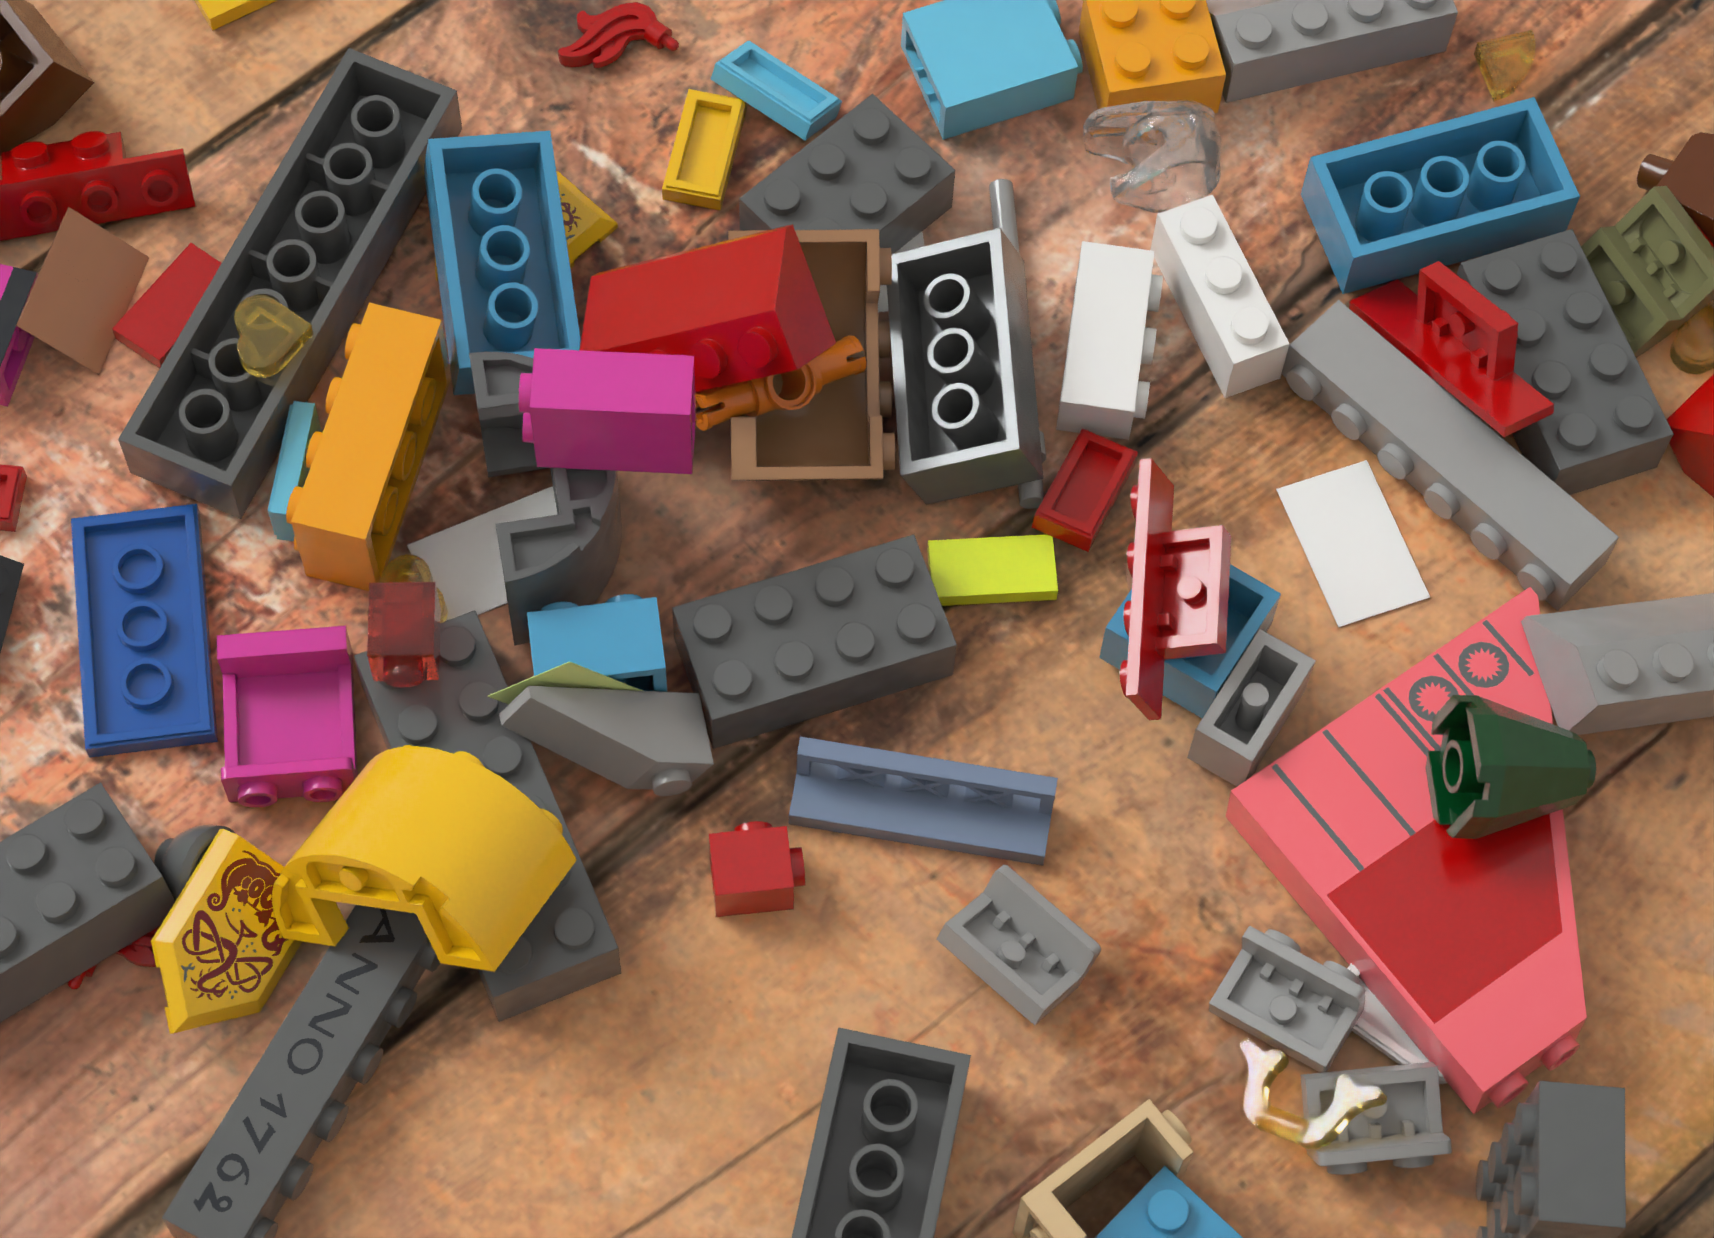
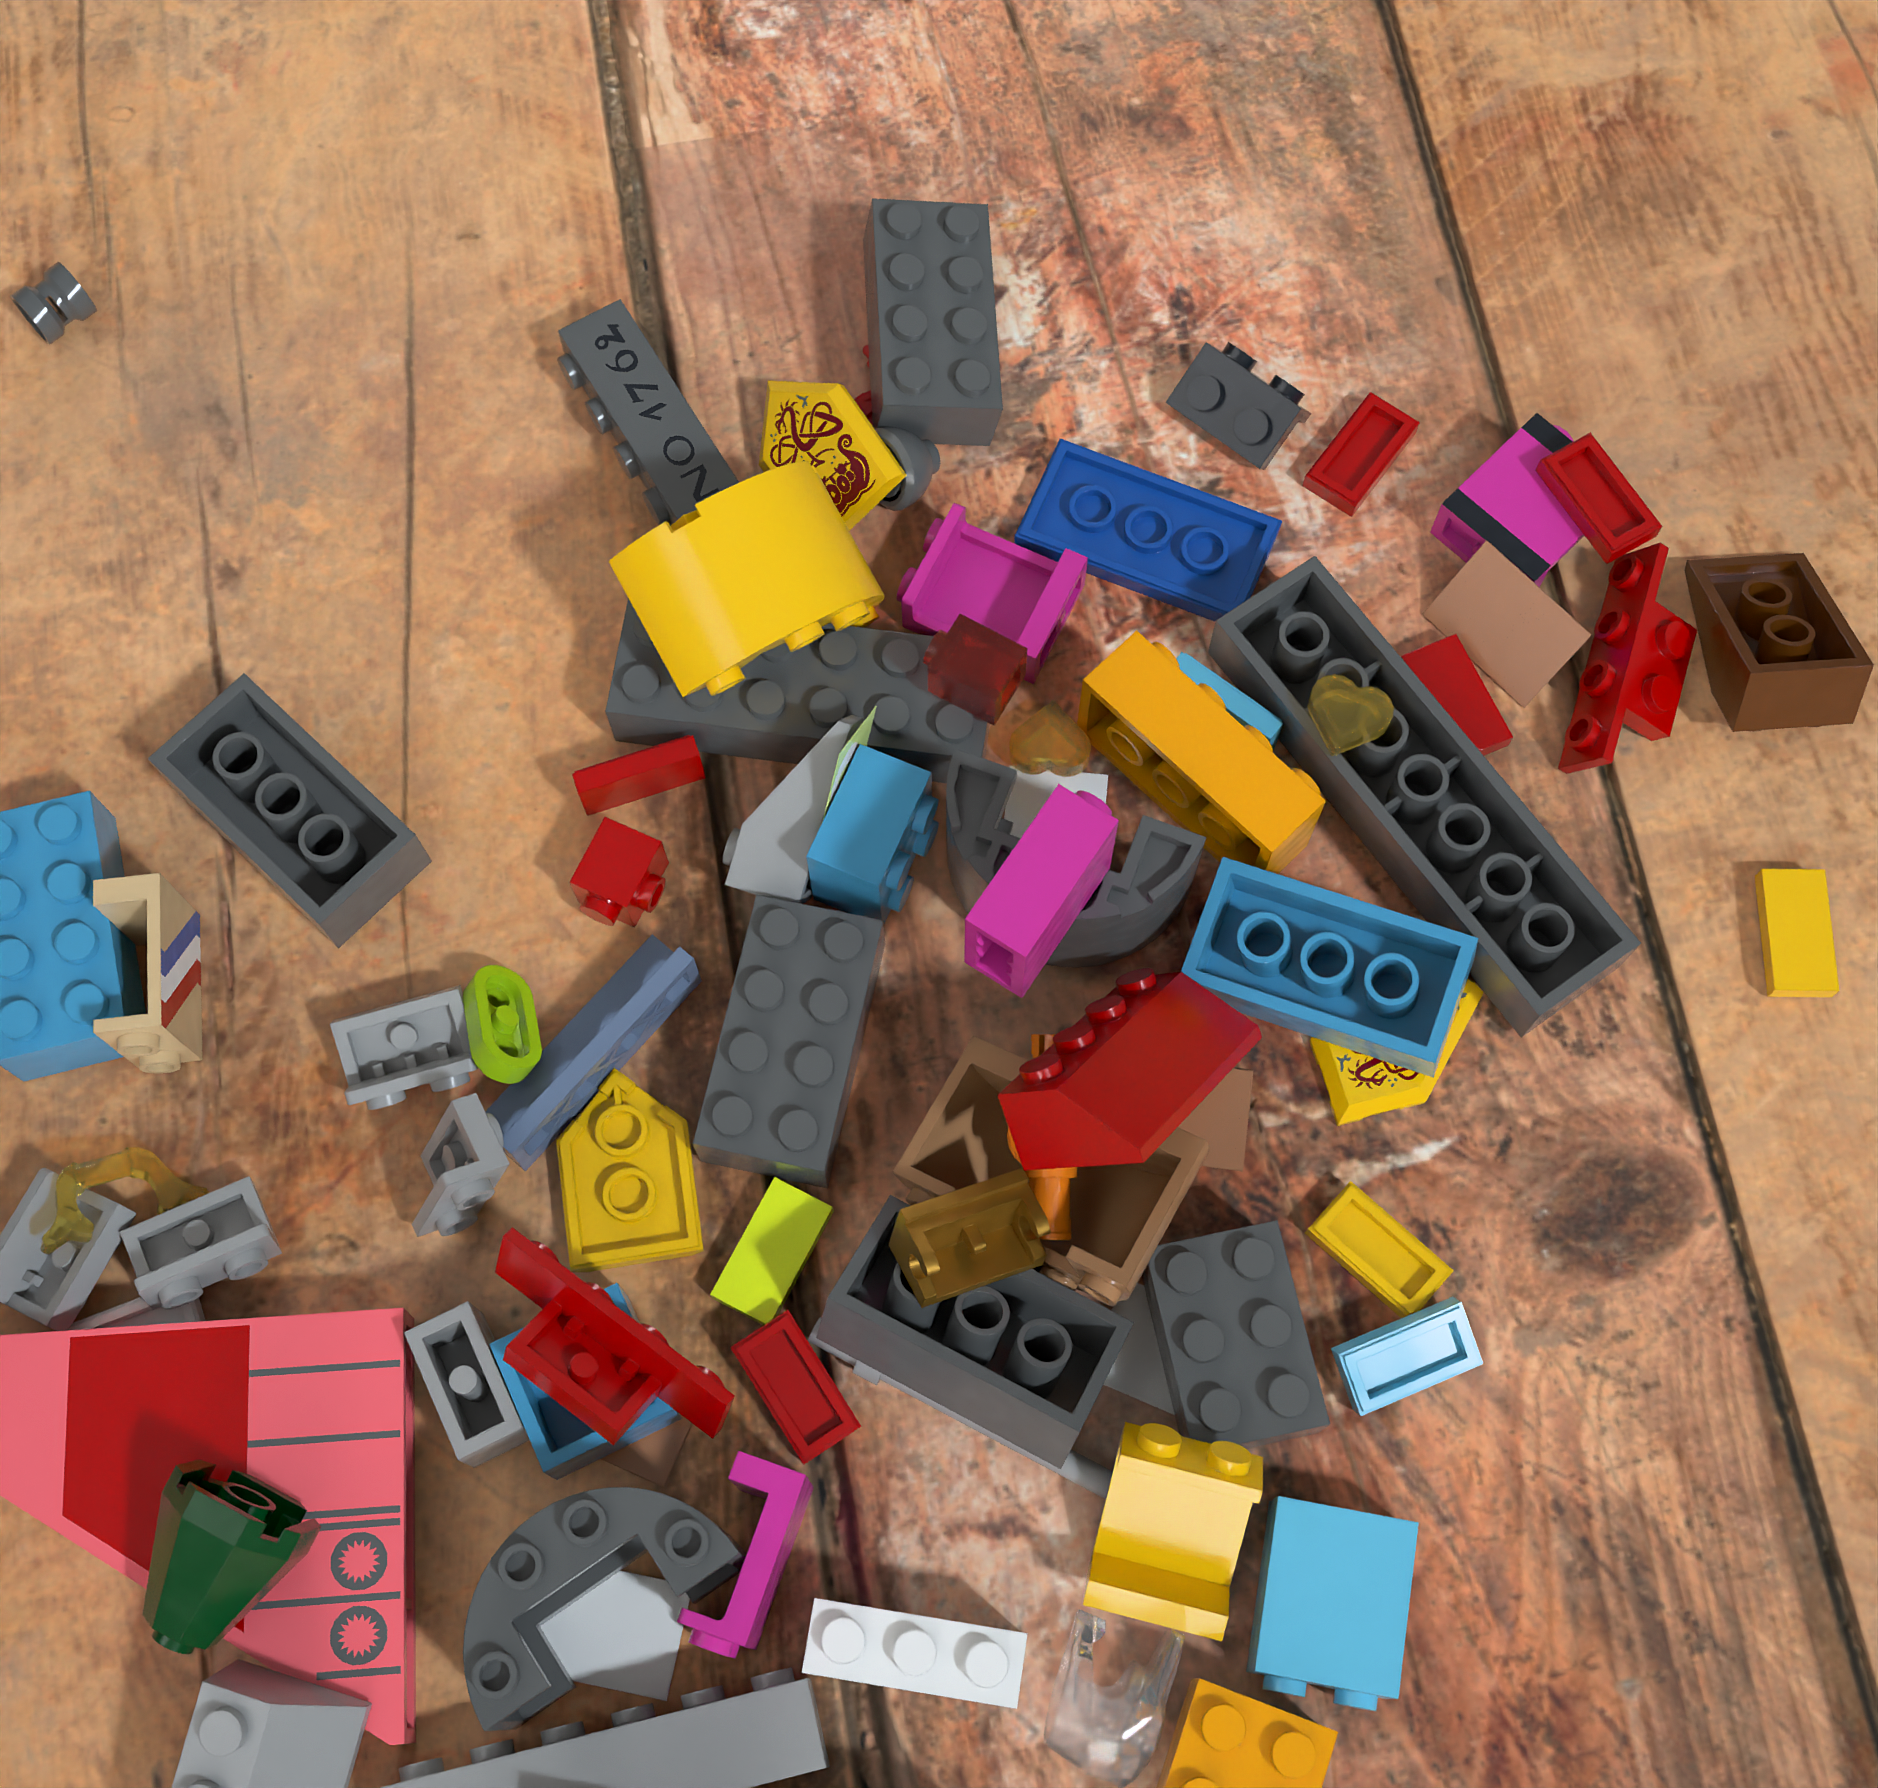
camera: 125 degrees right, 5 degrees up
(611, 31) = (1564, 1238): red piece -> none
(650, 911) = (639, 775): none -> red tile
(901, 385) = (970, 1237): none -> pearl gold hinge
(949, 877) = (501, 1024): none -> lime plate
(1011, 706) = (627, 1181): none -> yellow tile
(1019, 173) = (1172, 1529): none -> yellow panel
(1093, 814) = (464, 1166): none -> light grey bracket
(1109, 340) = (934, 1509): white brick -> none
(1235, 418) = (748, 1610): none -> dark pink panel
(1328, 541) = (558, 1561): none -> dark grey cylinder

